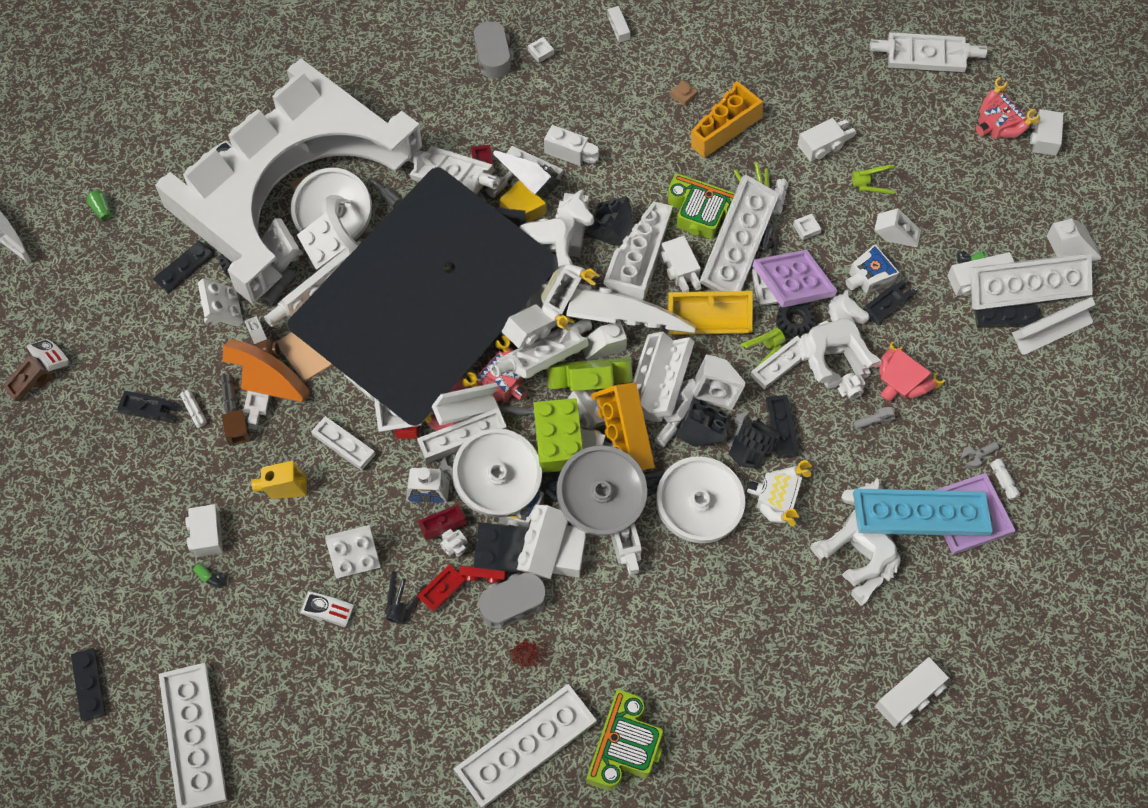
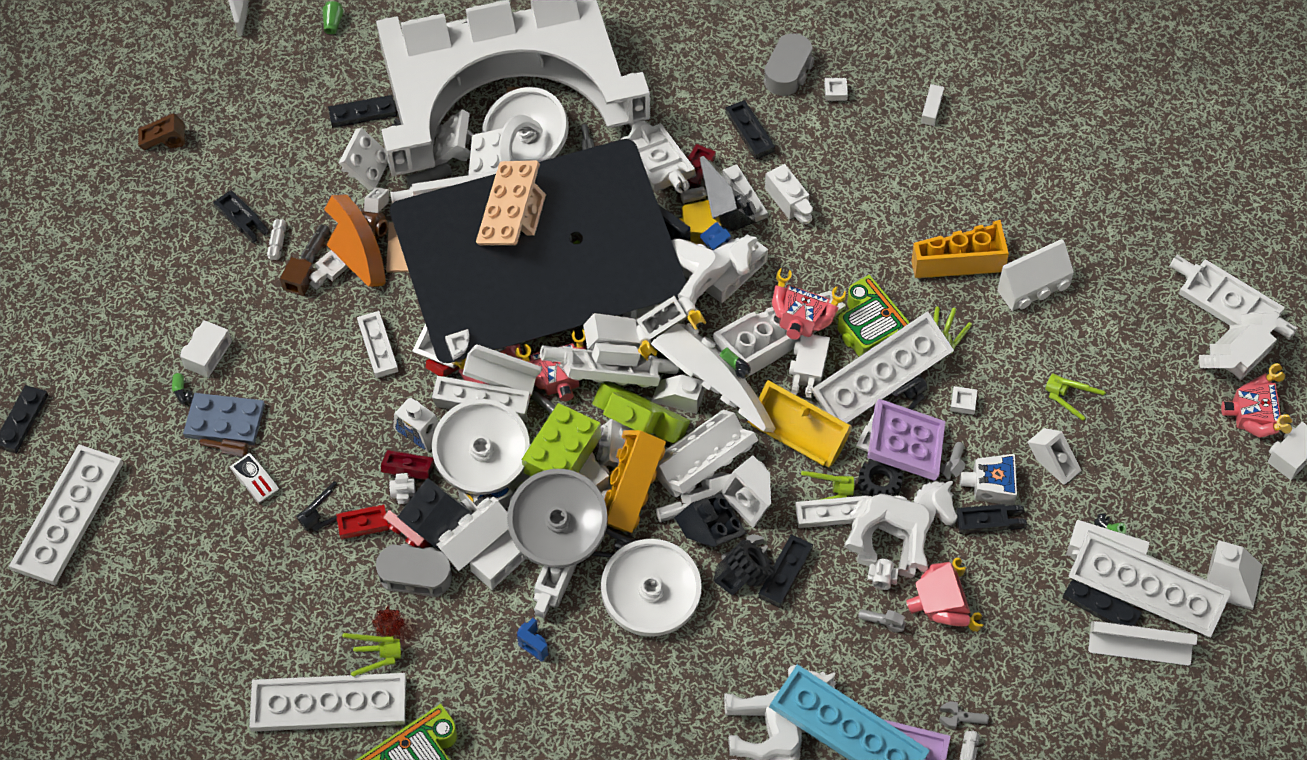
camera: 35 degrees right, 5 degrees down
(48, 354) = (193, 123): slope -> none
(263, 577) = (224, 418): none -> sand blue plate
(281, 481) = (299, 345): yellow torso -> none
(285, 597) = (227, 446): none -> reddish brown axle
(352, 551) = (310, 441): white plate -> none
(384, 269) = (512, 204): none -> light nougat bracket
(418, 403) = (457, 343): none -> white tile
(501, 114) = (750, 129): none -> black plate
(539, 674) = (388, 649): none -> lime plant
(544, 339) = (615, 354): none -> white piece
(546, 208) = (715, 236): none -> blue bracket
(611, 221) = (762, 286): black slope -> none
(644, 294) = (740, 366): none -> arm
(645, 598) = (532, 643): none -> blue bracket
(651, 226) = (801, 310): none -> coral torso
(683, 93) = (945, 205): medium nougat plate -> none
(779, 493) = (732, 628): white torso -> none
(781, 186) = (959, 356): white axle -> none
(790, 108) = (1036, 276): none -> white slope
(824, 138) = (1052, 326): white hinge -> none
(836, 275) = (955, 464): none -> light grey bar
(964, 77) = (1242, 345): none -> white slope

